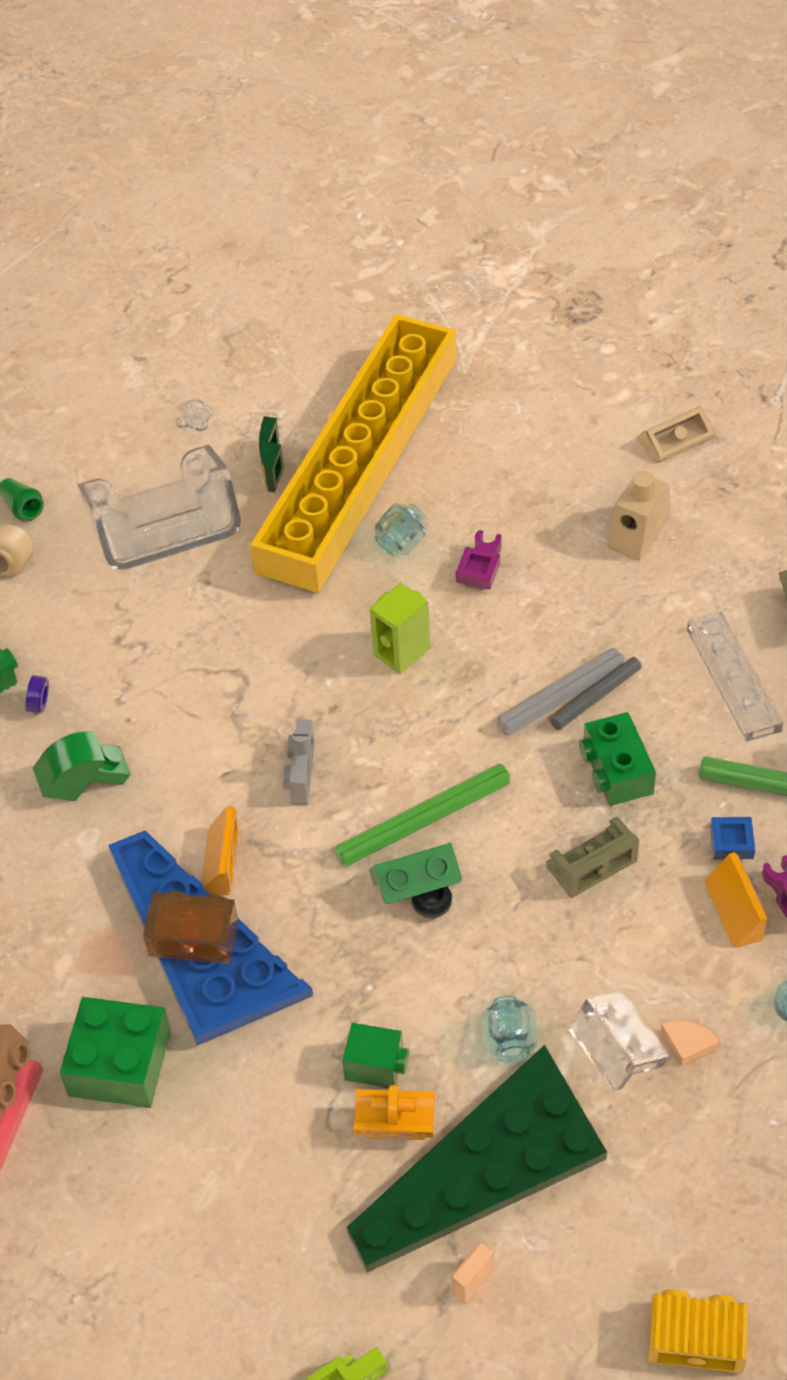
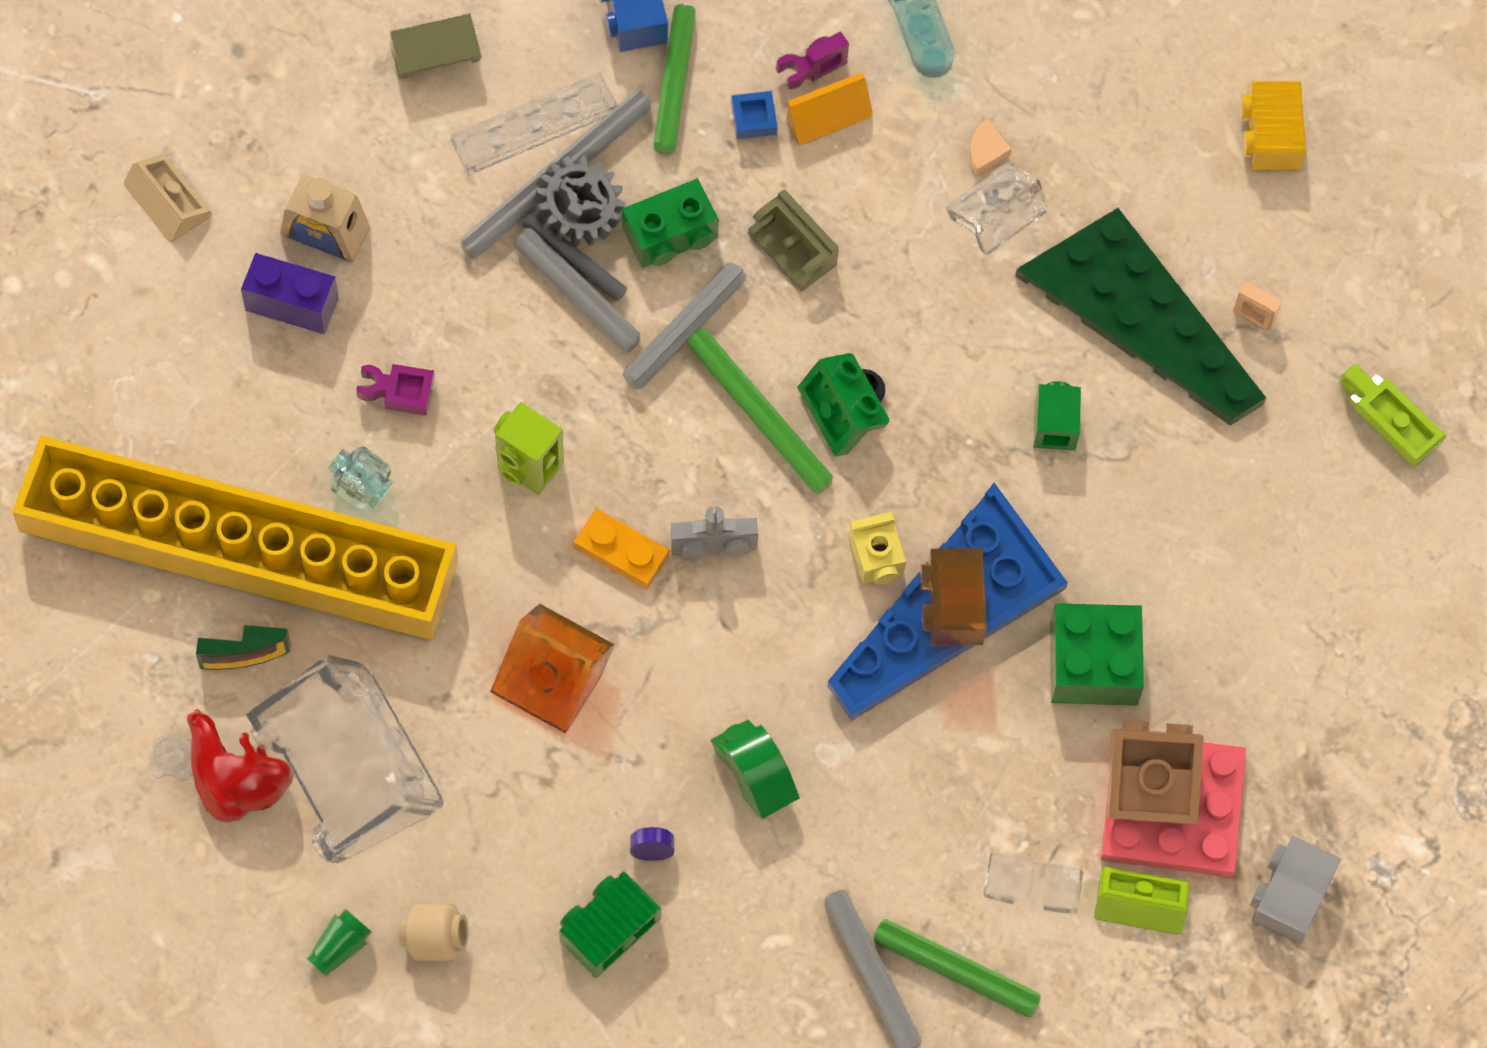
camera: 105 degrees left, 15 degrees up
(160, 443) = (231, 783): none -> red piece
(211, 641) = (551, 667): none -> clear orange slope
(221, 853) = (839, 603): light orange slope -> none
(264, 886) = (873, 533): none -> light yellow brick
(309, 700) = (621, 548): none -> light orange plate
(394, 1113) = (1119, 387): light orange hips -> none
(509, 1029) = (1008, 298): clear light blue head -> none
(518, 766) = (684, 325): none -> light grey axle
(573, 493) = (289, 293): none -> dark purple brick
(638, 675) = (593, 188): none -> dark grey gear
(683, 687) = (588, 145): none -> light grey axle

